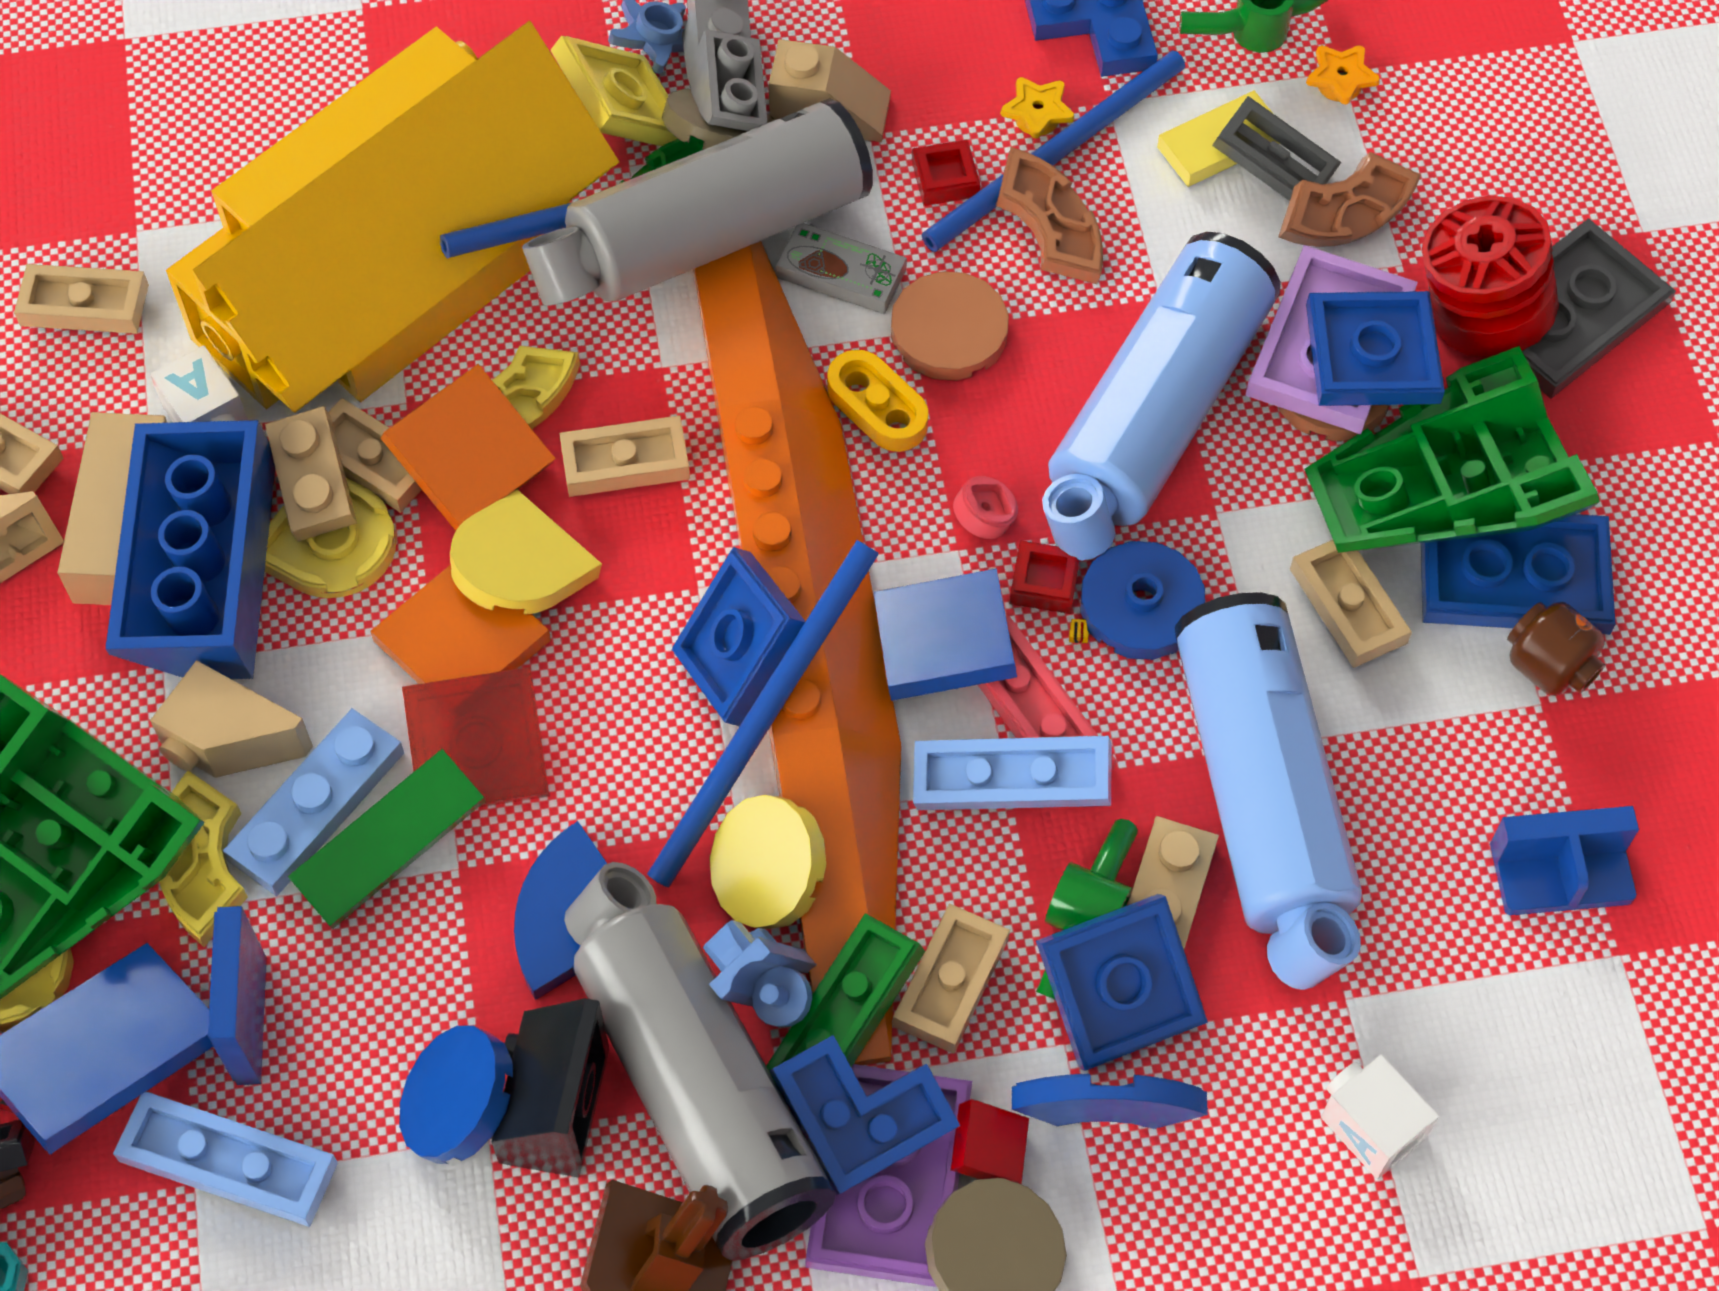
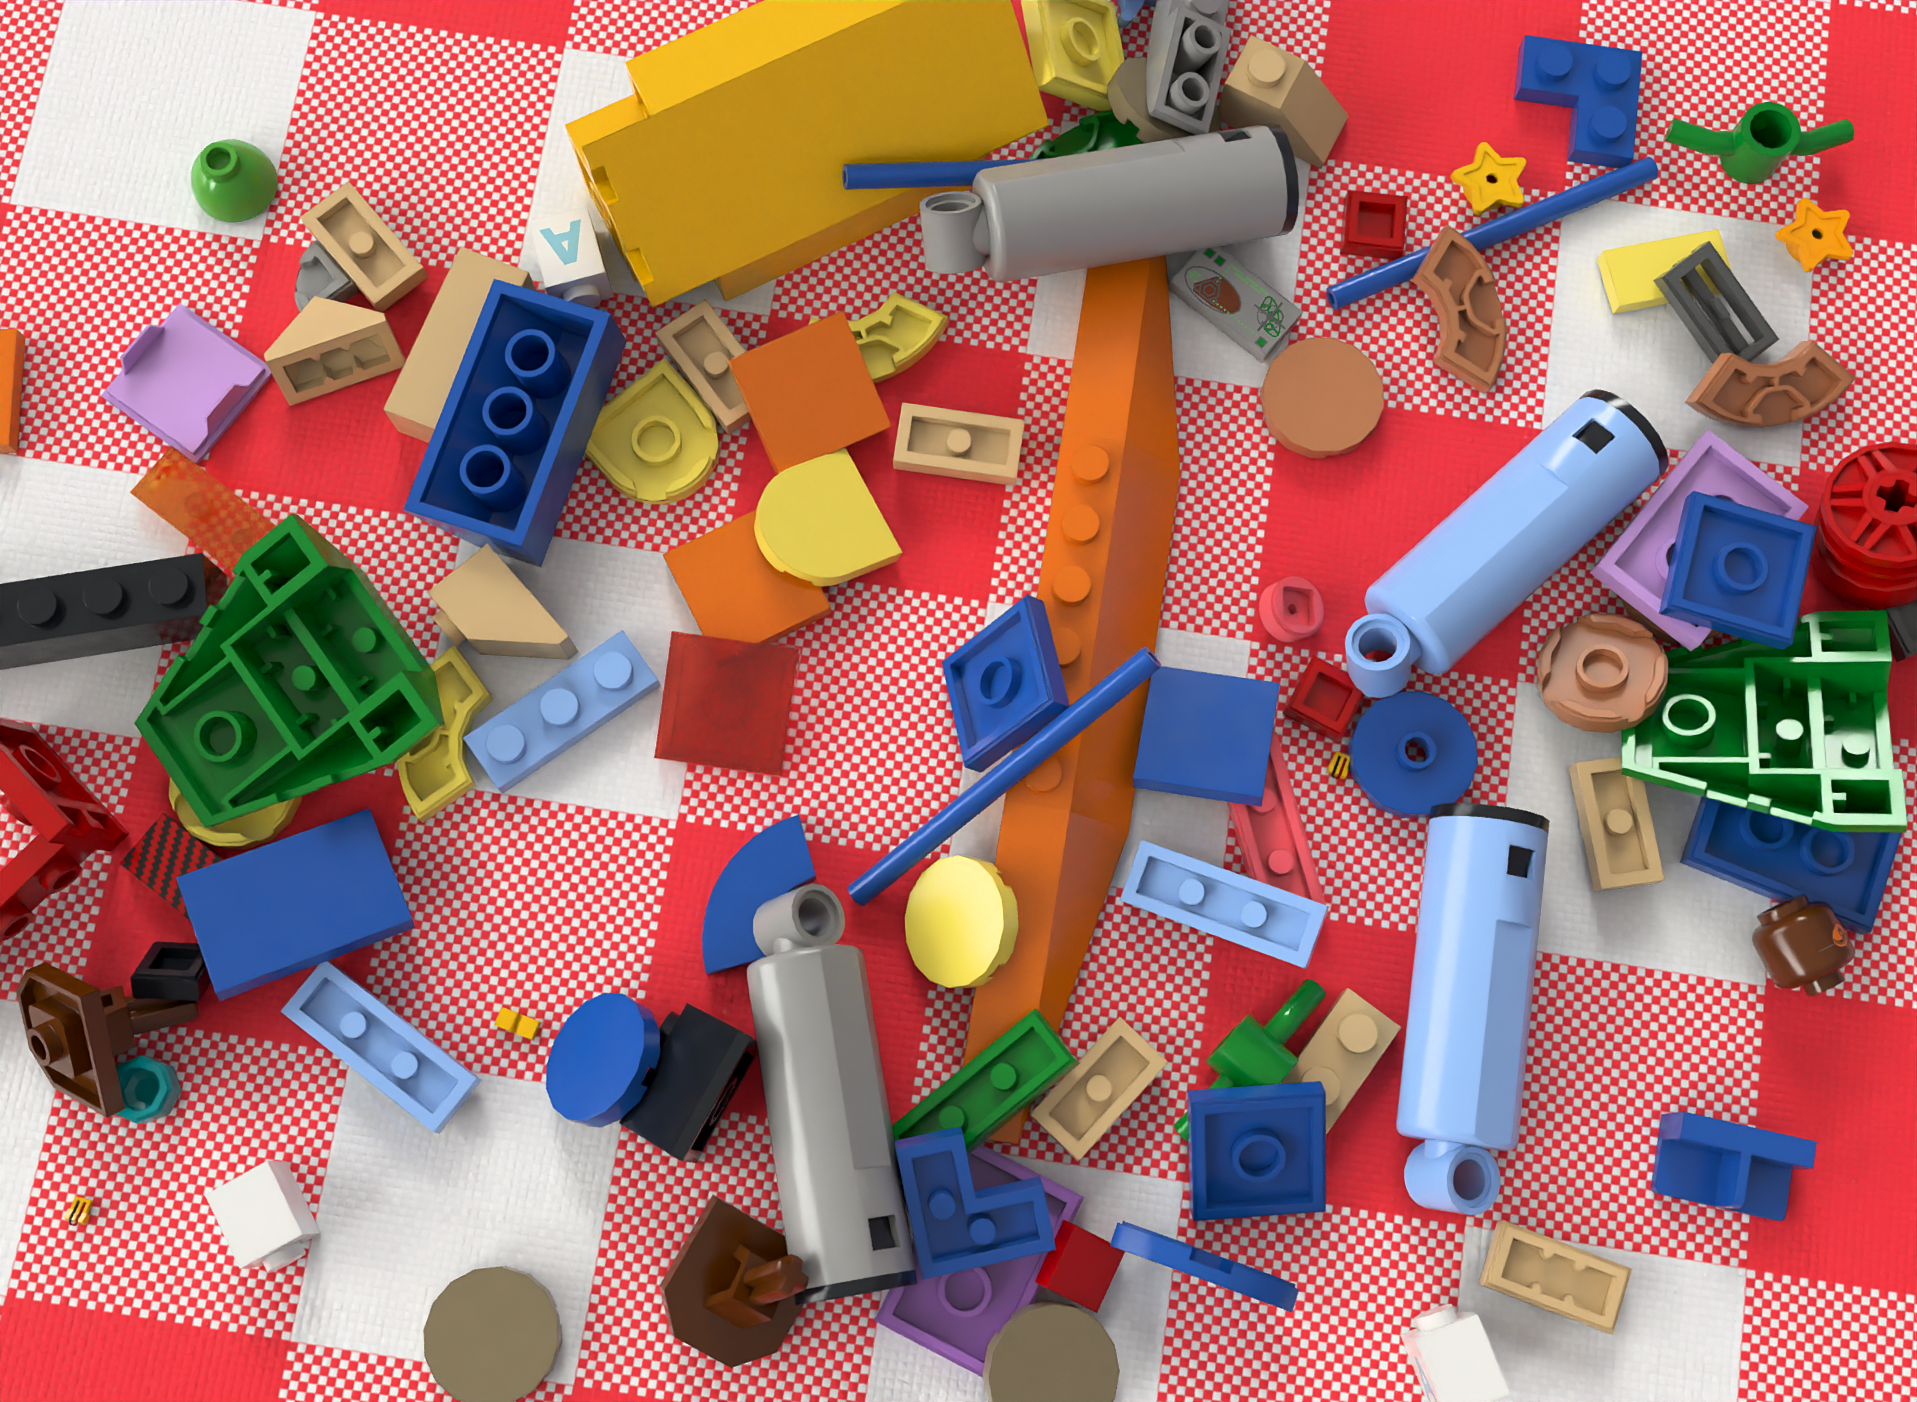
camera: 15 degrees right, 15 degrees up
(81, 298) = (489, 111): tan plate -> none
(237, 995) = (429, 900): blue tile -> none
(310, 473) = (651, 374): tan plate -> none
(357, 1102) = (517, 1023): none -> yellow piece
(387, 838) = (616, 777): green tile -> none
(761, 973) = (914, 1032): medium blue hips -> none
(882, 402) = (1224, 463): yellow plate -> none
(1288, 477) = (1602, 673): none -> nougat tile
(1444, 1011) = (1555, 1276): none -> tan plate

